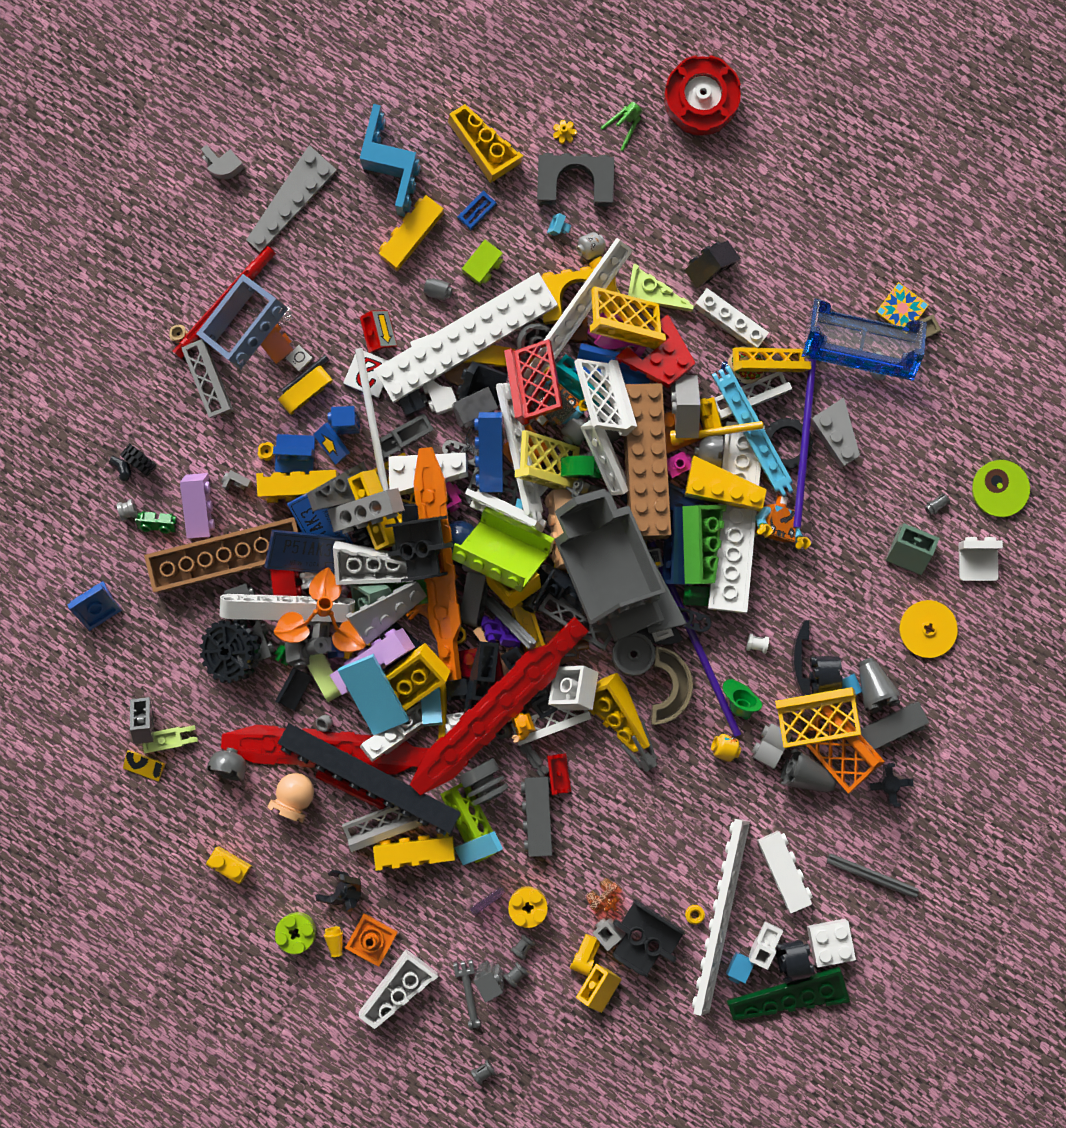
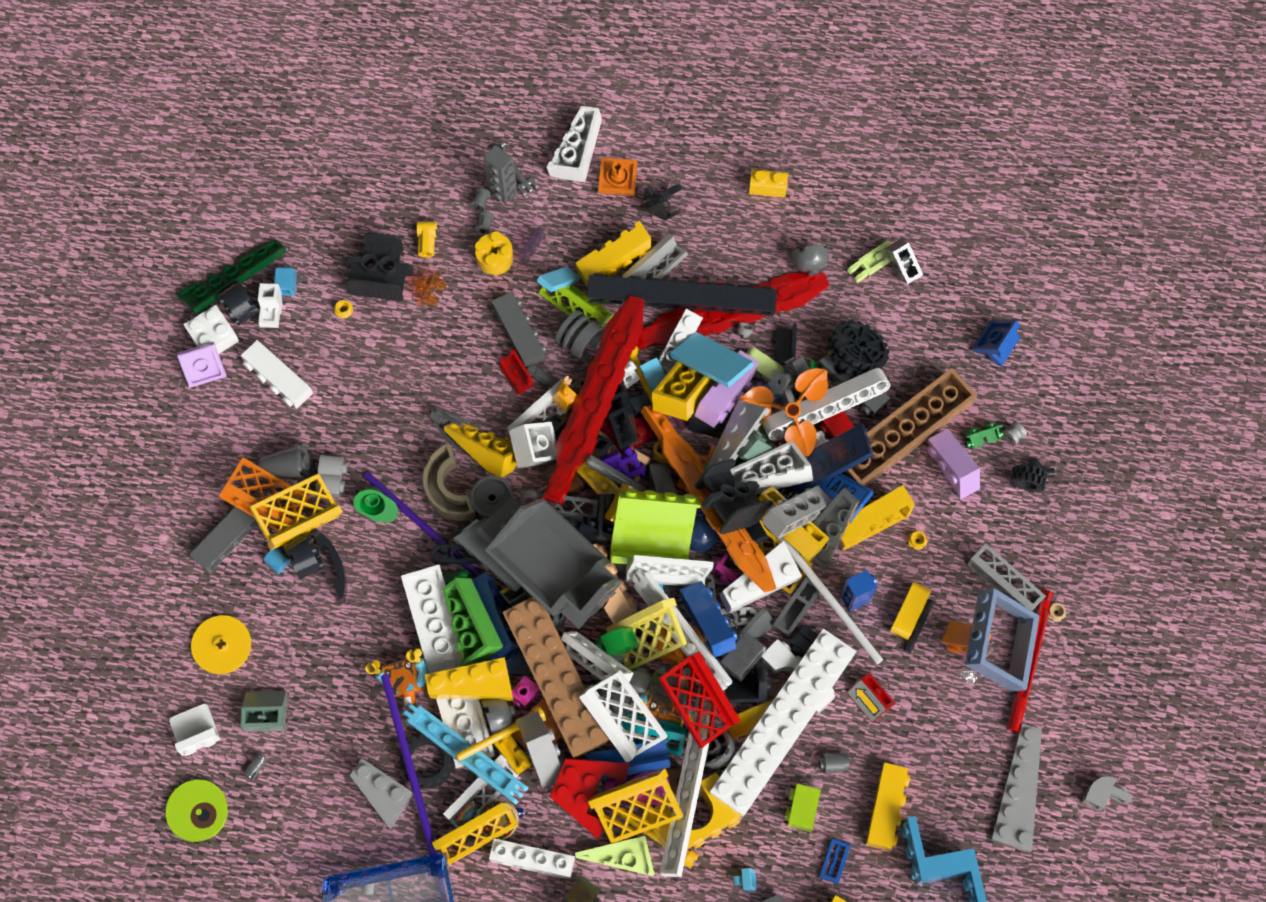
camera: 155 degrees right, 15 degrees down
(143, 765) = (882, 233): yellow slope -> none
(240, 481) = (927, 502): light grey bracket -> none
(284, 934) = (684, 154): lime brick -> none
(293, 795) = (741, 254): light nougat tile -> none
(294, 453) = (891, 548): blue bracket -> none
(299, 358) = (932, 639): white tile -> none
(331, 443) = (853, 567): blue tile -> none
(334, 940) = (649, 163): yellow cone -> none
(353, 377) = (862, 661): white tile -> none
(447, 434) = (759, 624): none -> dark grey tile
(483, 1072) = (474, 115): dark grey bush -> none
(581, 487) = (600, 624): dark grey hinge -> none
(591, 245) = (704, 873): light grey head -> none
(598, 988) = (403, 215): yellow brick -> none
(604, 938) = (416, 259): light grey brick -> none
(719, 925) = (319, 316): white plate -> none
(725, 747) = (372, 457): yellow head -> none
(757, 643) = (380, 561): white bush -> none
(770, 381) = (467, 813): none -> tile
(852, 911) = (201, 364): none -> lavender tile
(872, 875) = (194, 405): dark grey axle -> none
(876, 687) = (251, 567): dark grey cone -> none
(890, 784) = (206, 486): black piece -> none

